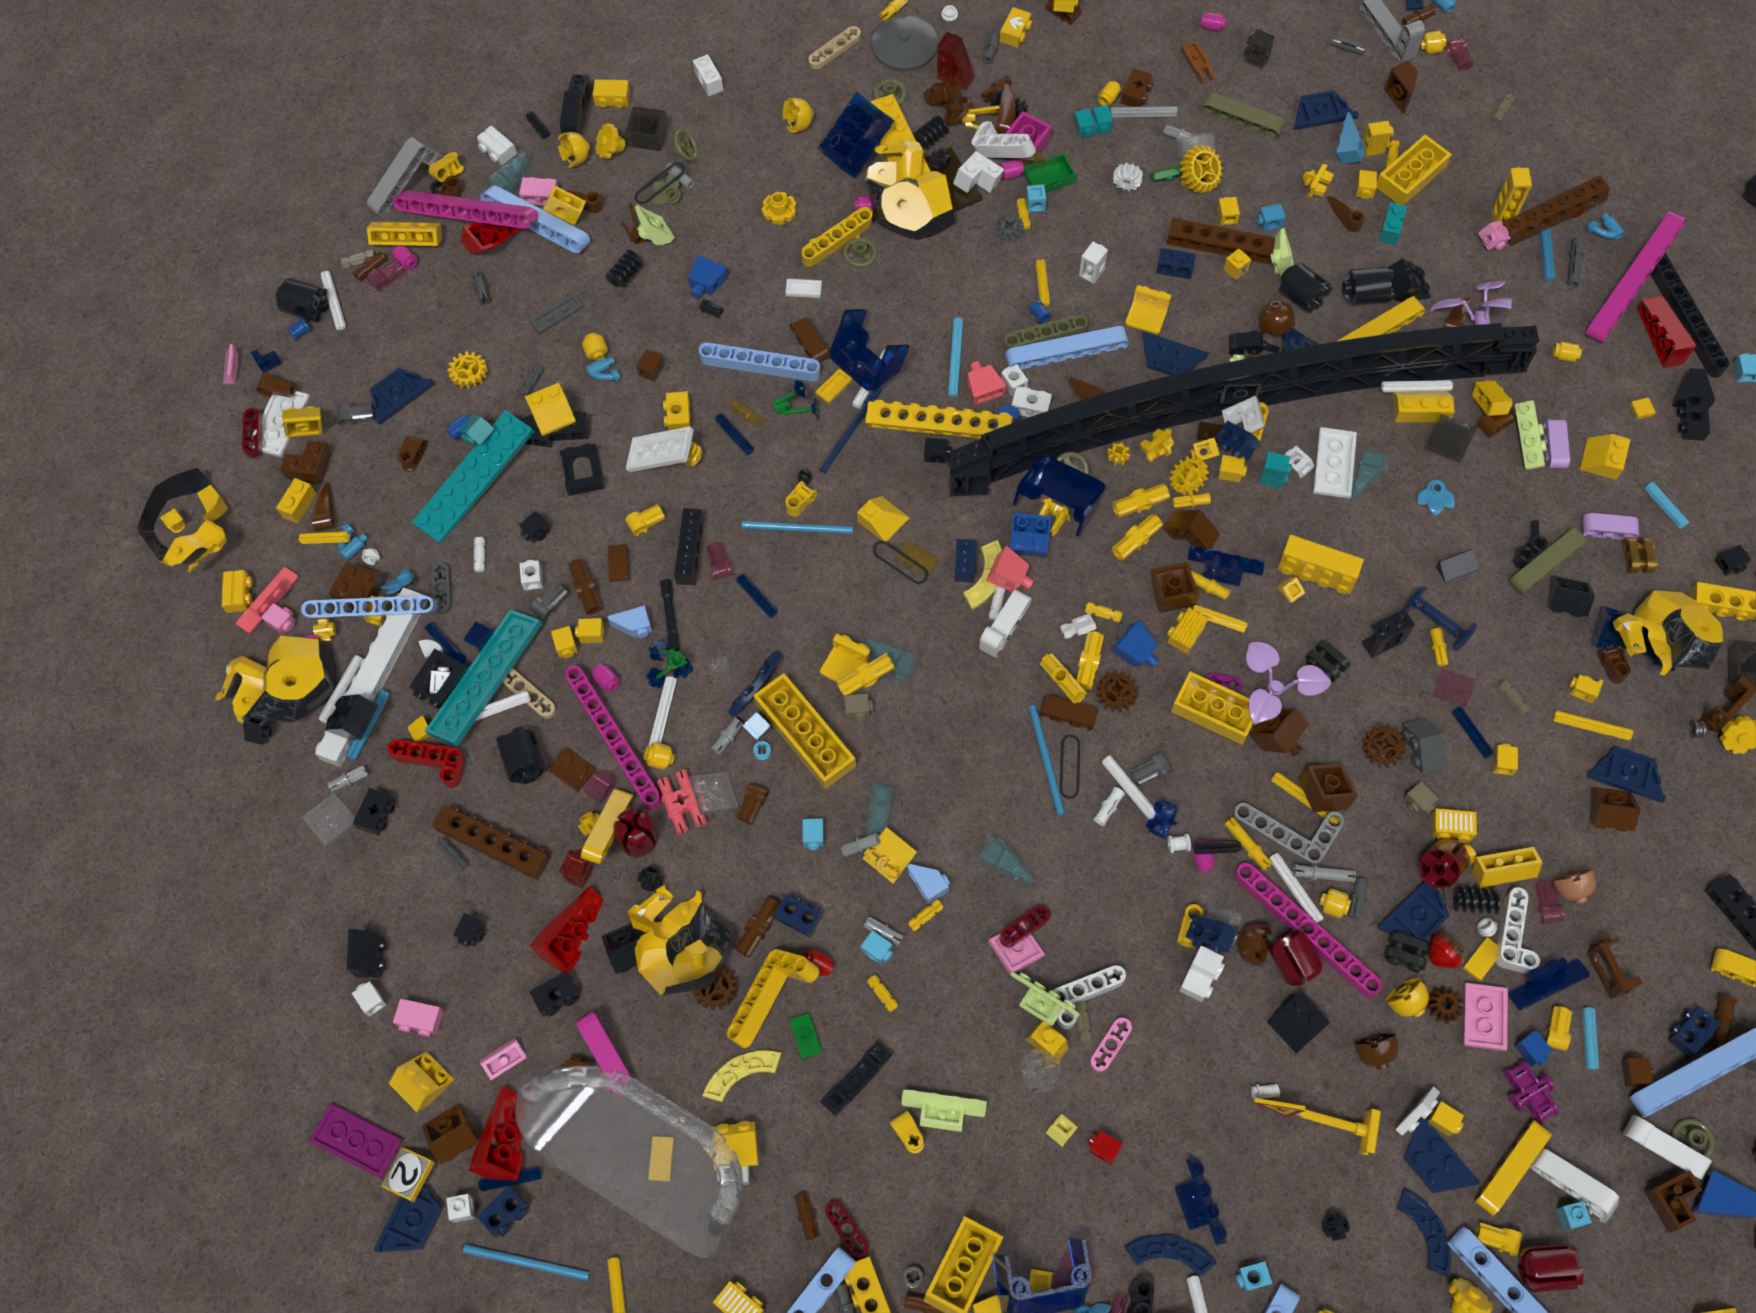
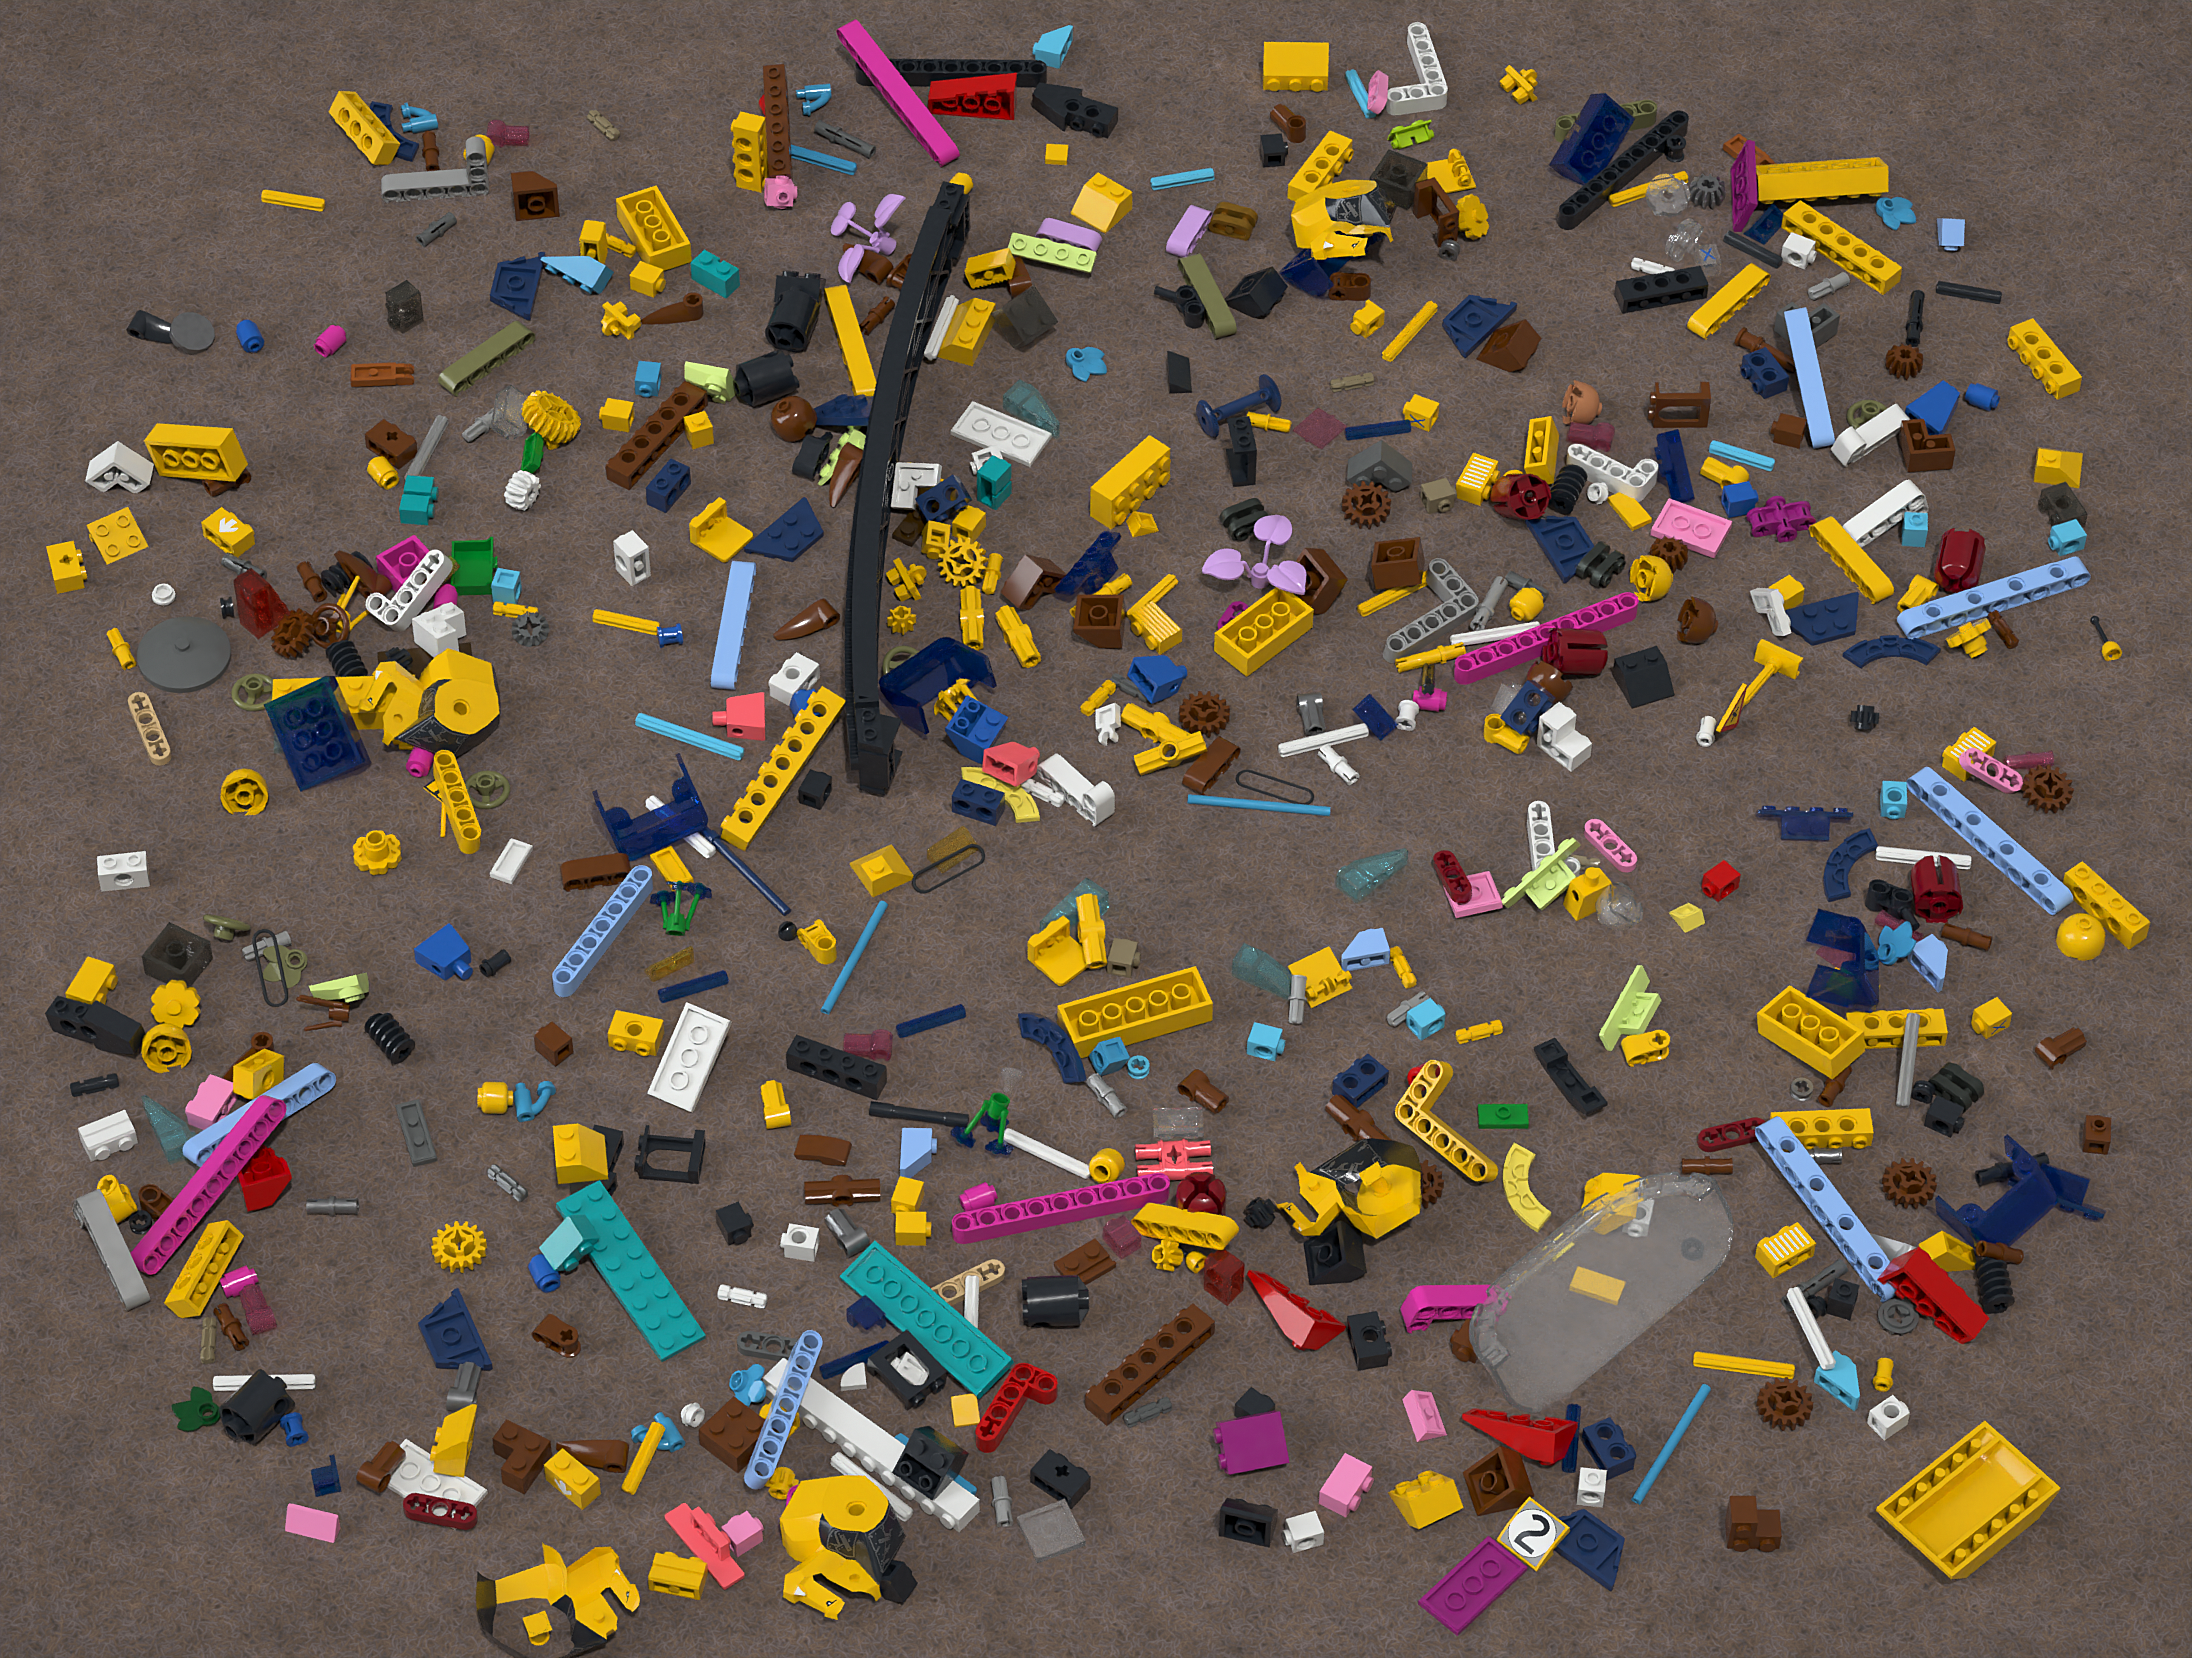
camera: 75 degrees left, 15 degrees down
(302, 270) = (192, 1412): none -> dark green plate
(432, 935) = (1251, 1442): none -> magenta brick
(1013, 373) = (753, 682): white brick -> none
(1052, 329) = (704, 637): olive beam -> none
(1445, 951) = (1613, 529): red hair -> none

